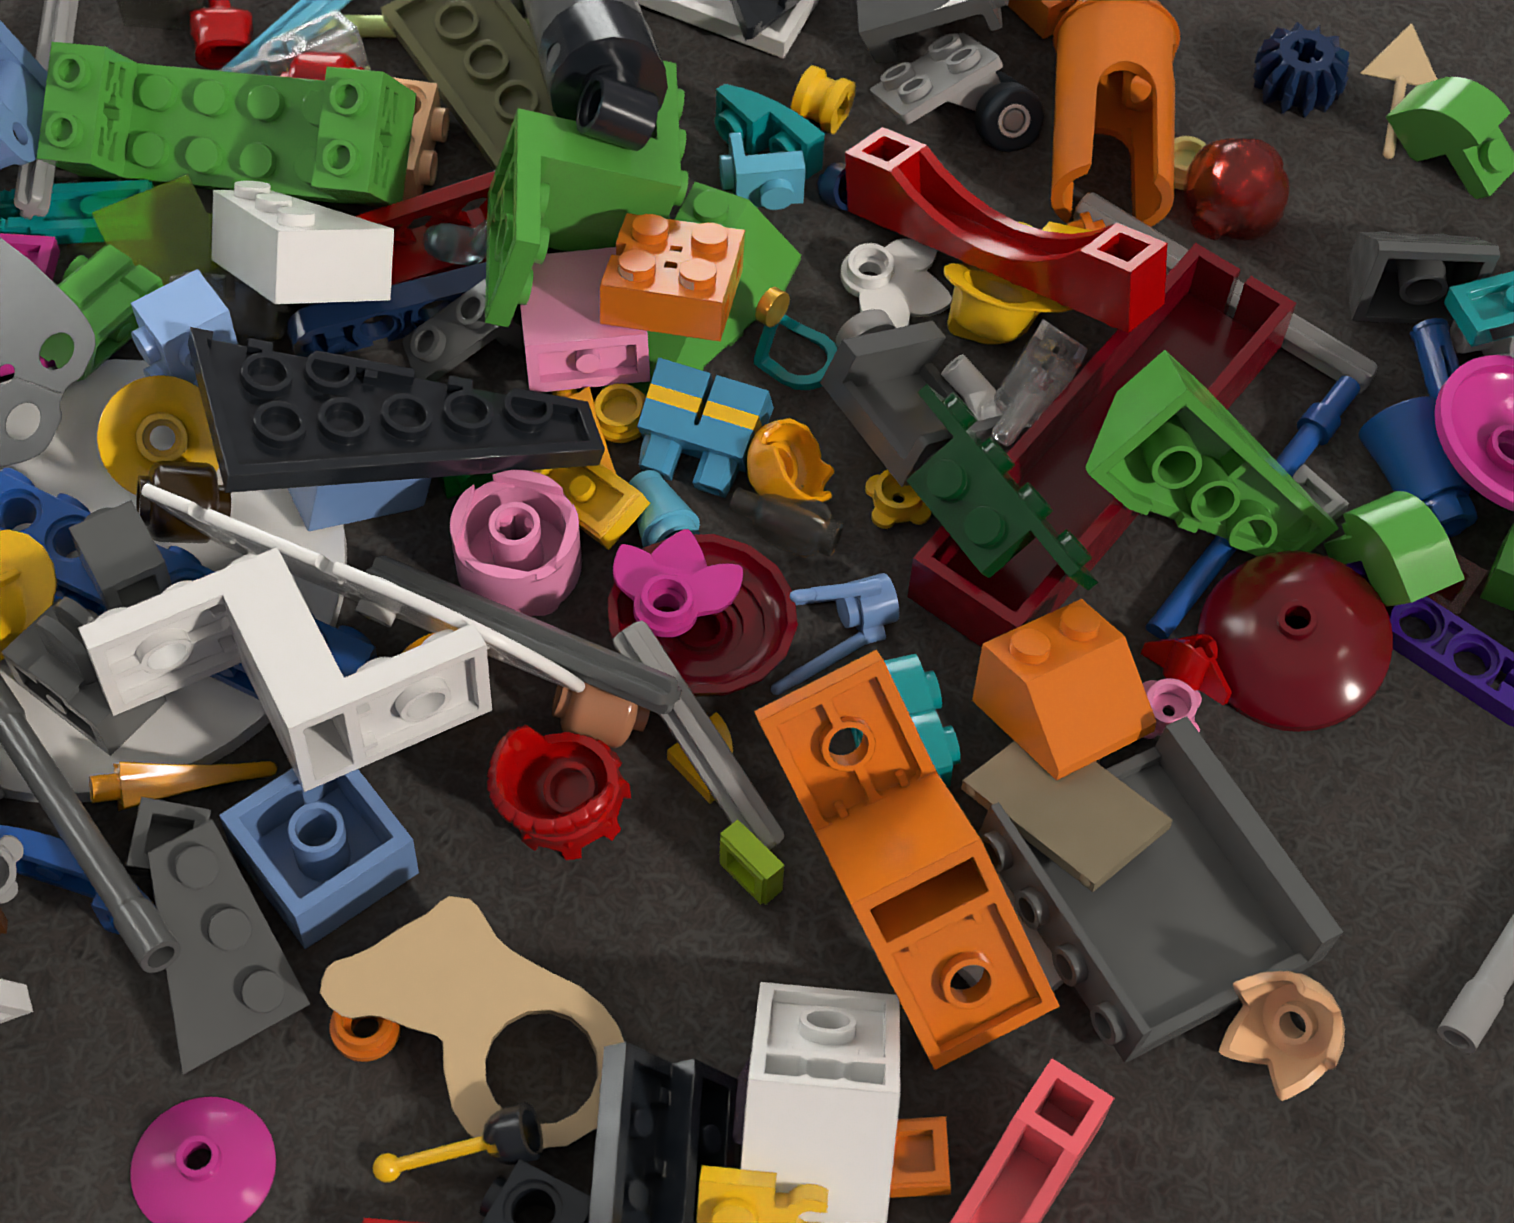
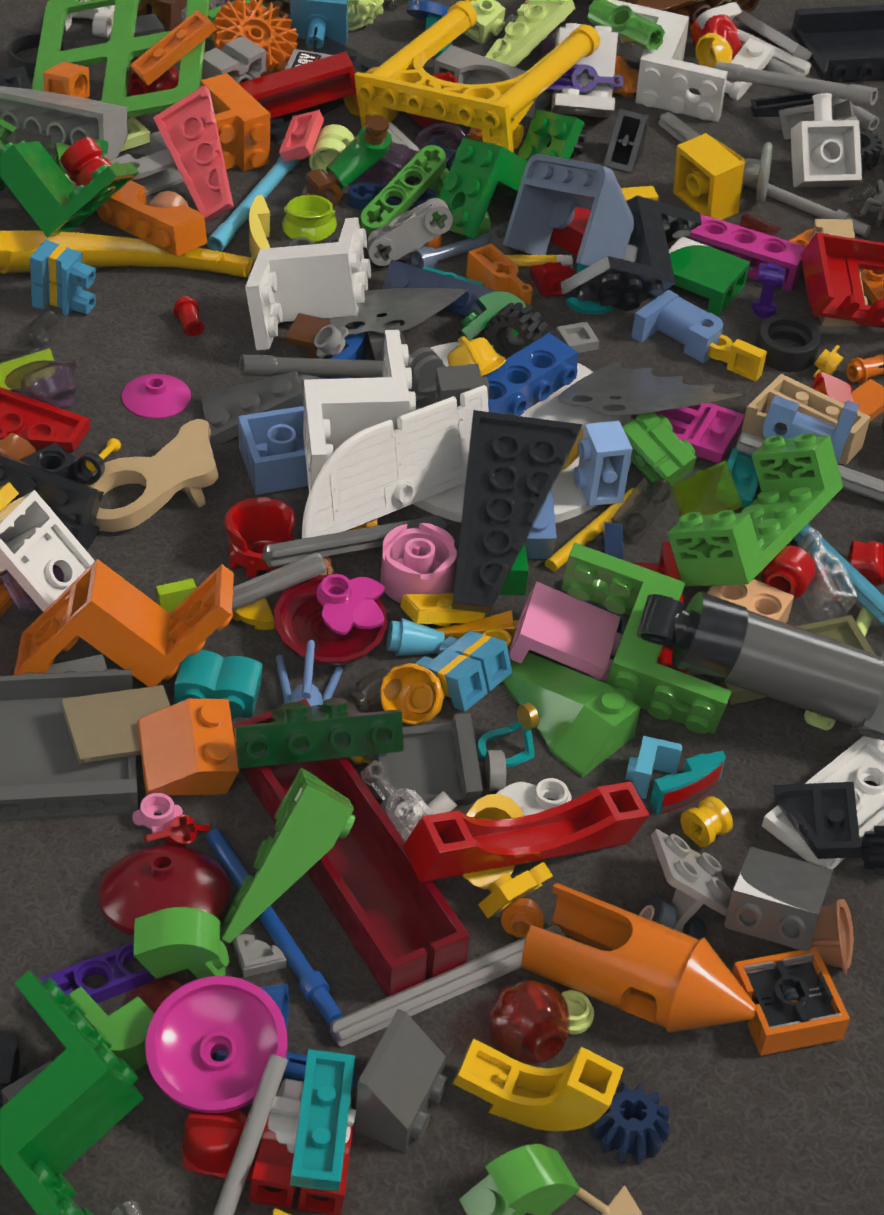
camera: 110 degrees right, 15 degrees down
(299, 248) = (645, 509): white wedge -> none
(672, 276) = (554, 654): orange piece -> none
(1327, 131) = (536, 1096): none -> yellow arch

